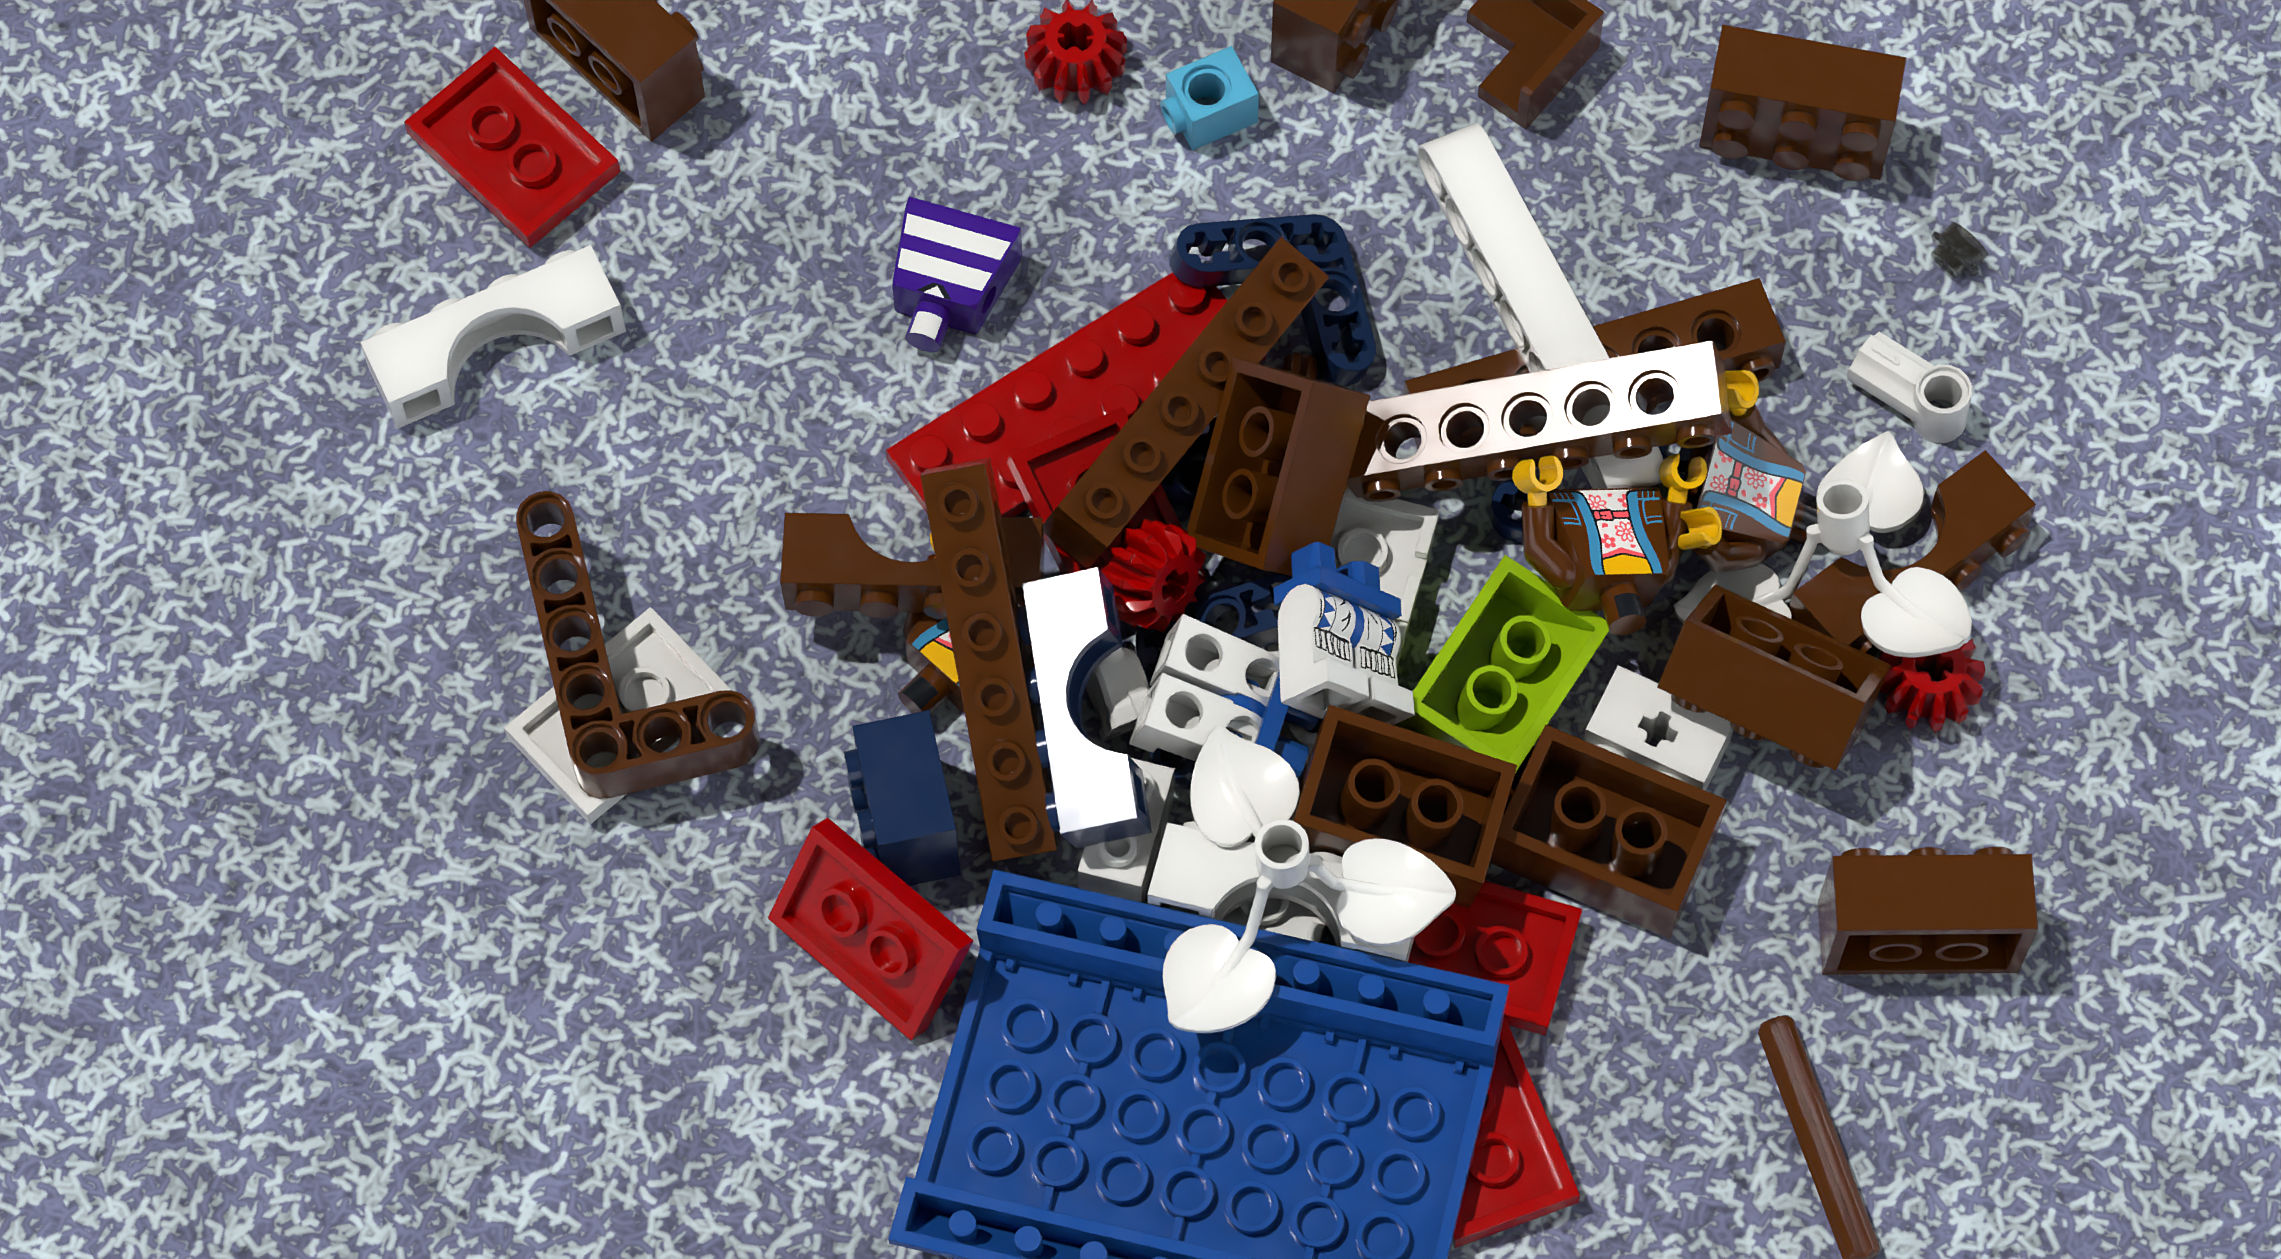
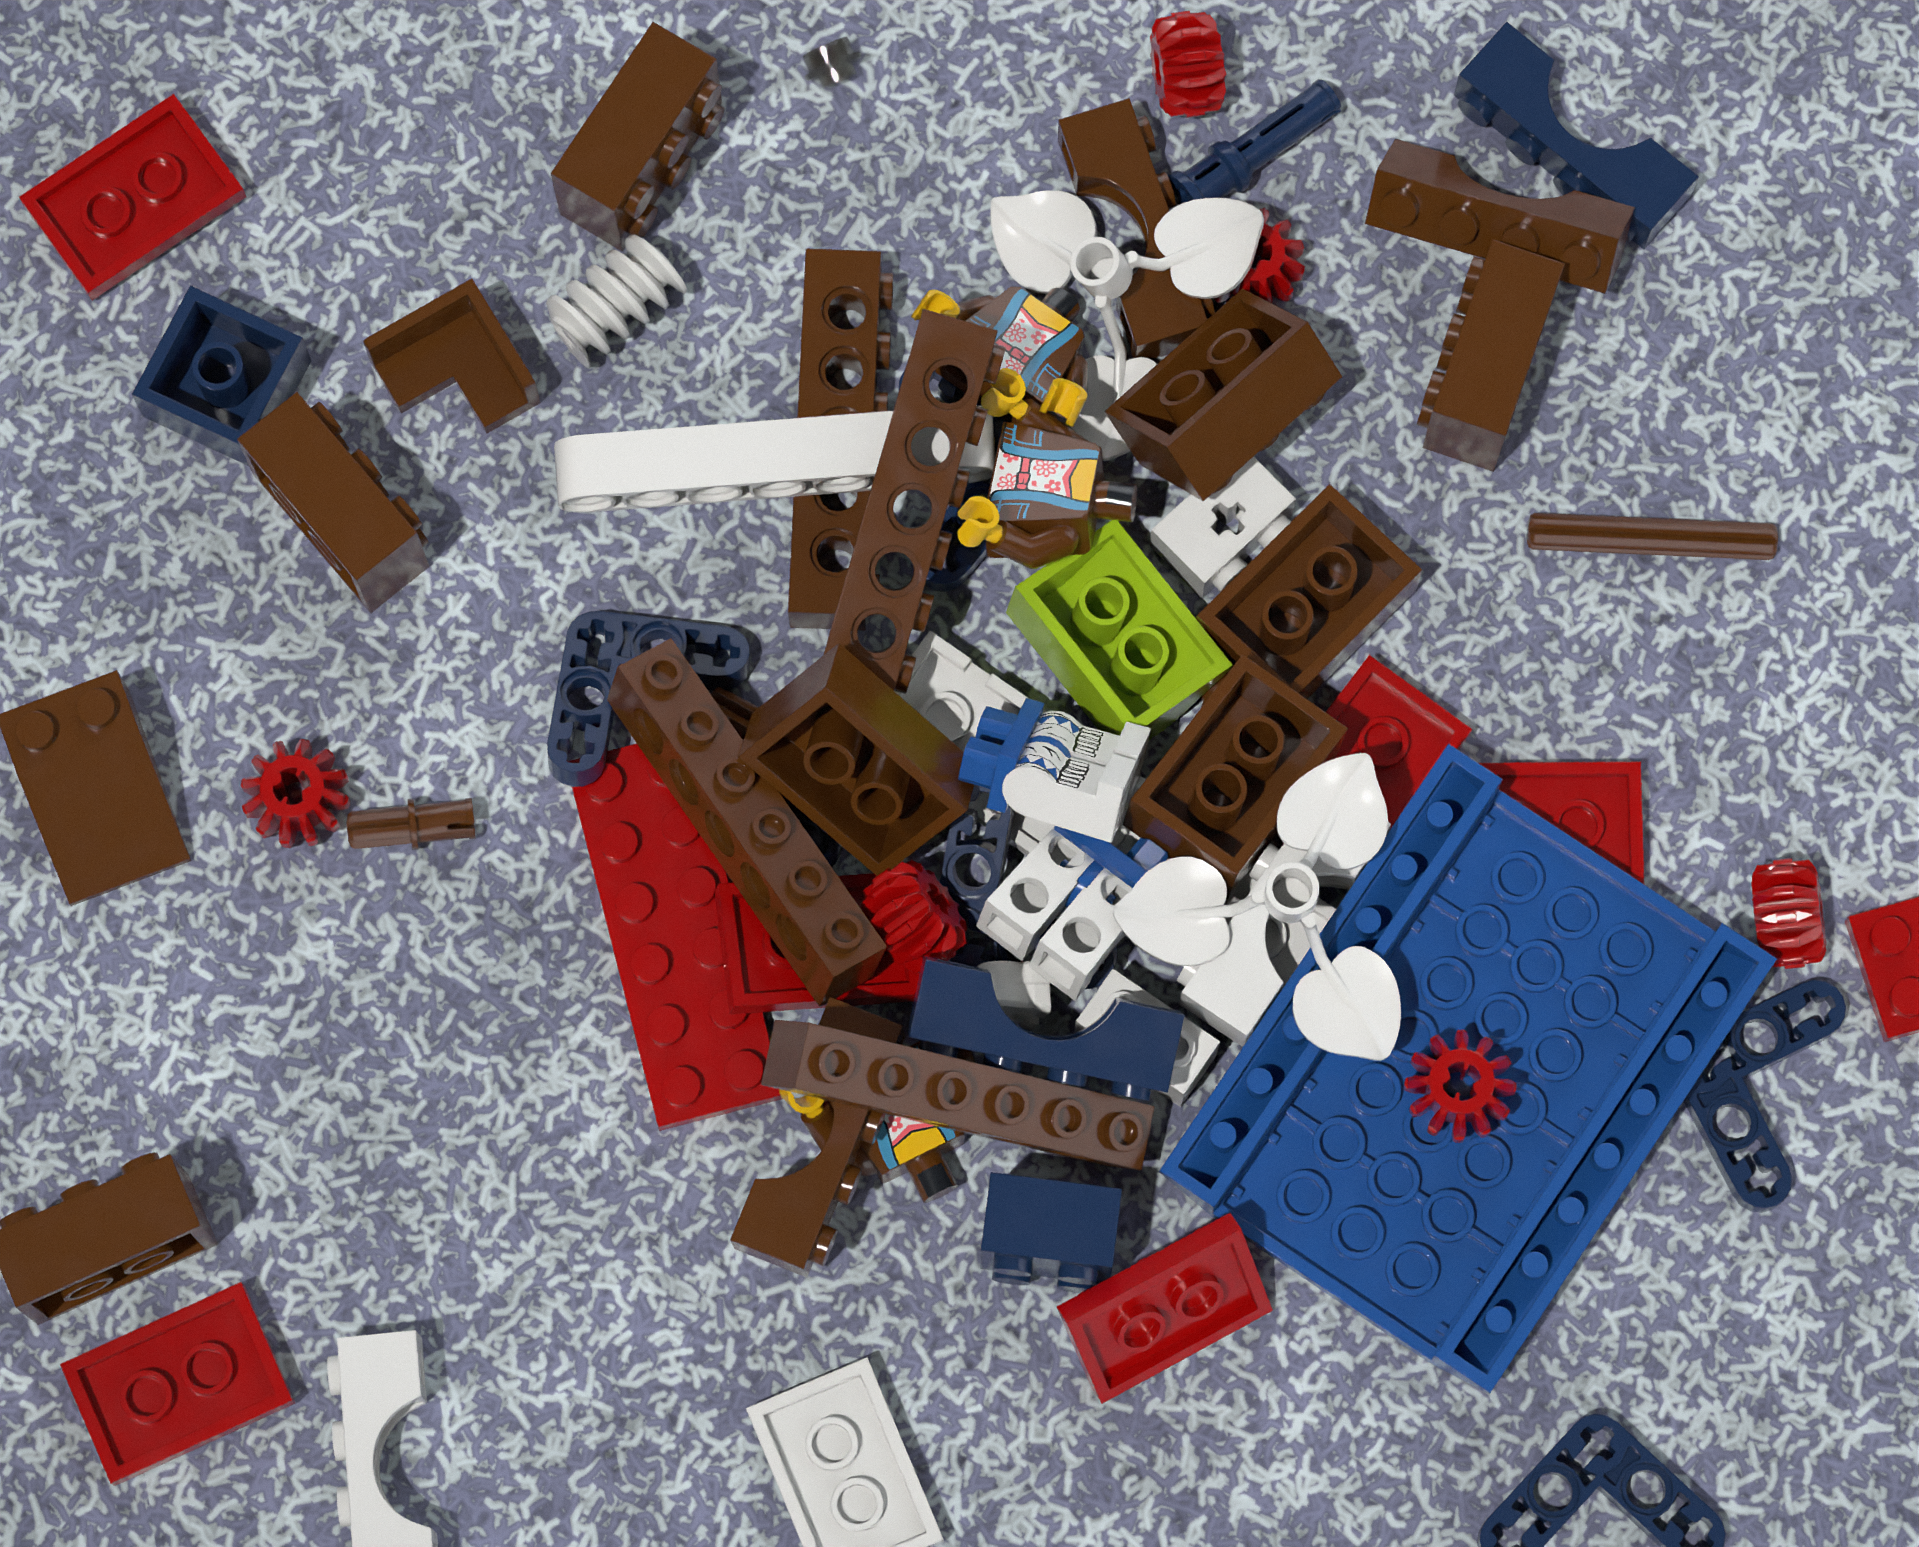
camera: 70 degrees left, 10 degrees up
(589, 672) = (806, 1478): reddish brown beam -> none
(950, 270) = (490, 1000): dark purple torso -> none
(1086, 155) = (411, 824): none -> reddish brown axle
(1179, 1138) = (1437, 1078): none -> red gear
(1216, 77) = (392, 659): medium azure brick -> none
(1642, 144) = (612, 297): none -> white piece
(1910, 384) = (950, 160): white piece -> none
(2020, 628) = (1232, 164): none -> dark blue pin
(2079, 948) = (1434, 201): none -> reddish brown arch
(2096, 548) = (1188, 64): none -> red gear
(2169, 998) = (1510, 92): none -> dark blue arch

